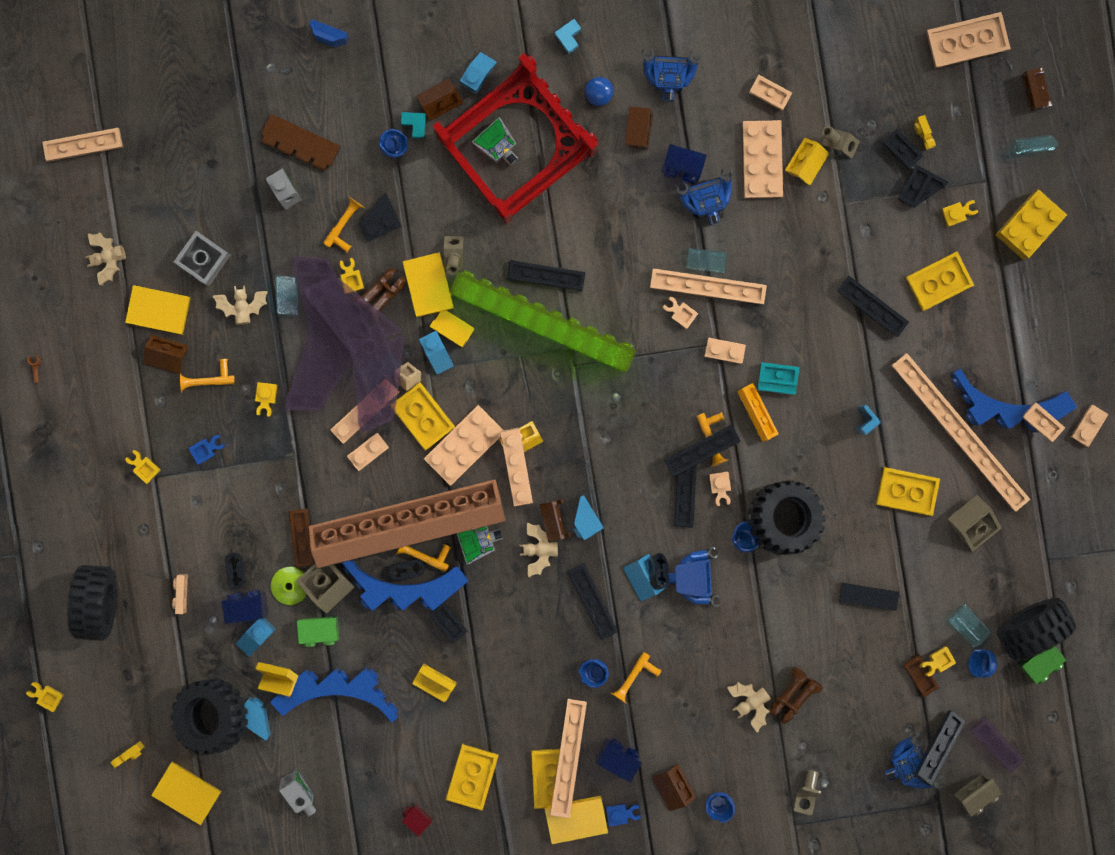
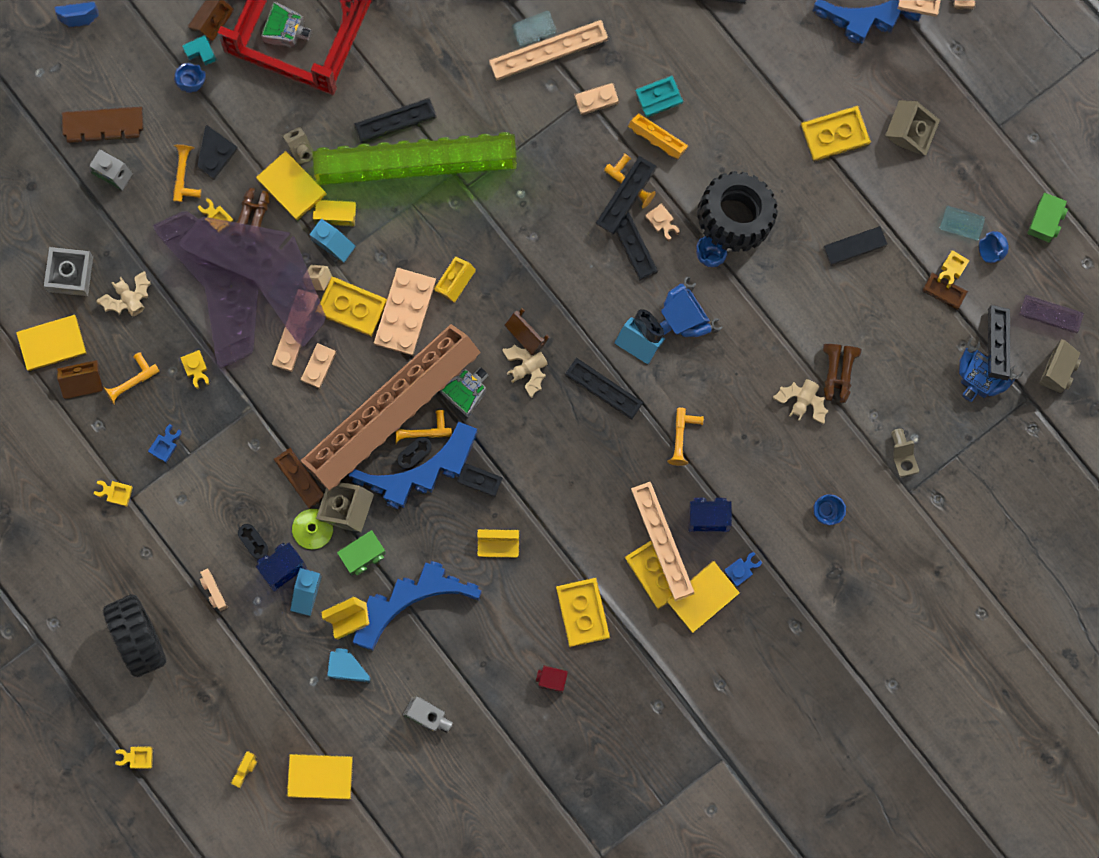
camera: 25 degrees left, 10 degrees down
(188, 722) = (278, 684): black tyre -> none
(286, 295) = (165, 265): clear light blue slope -> none
(516, 466) = (464, 303): light nougat plate -> none
(586, 520) = (555, 316): dark azure slope -> none
(594, 673) = (641, 451): blue hair -> none
(674, 788) = (777, 517): reddish brown panel -> none
(682, 314) = (539, 87): light nougat plate -> none
(869, 424) = (760, 82): dark azure panel -> none
(960, 432) = (852, 55): light nougat plate -> none
(1036, 629) = (1021, 184): black tyre -> none

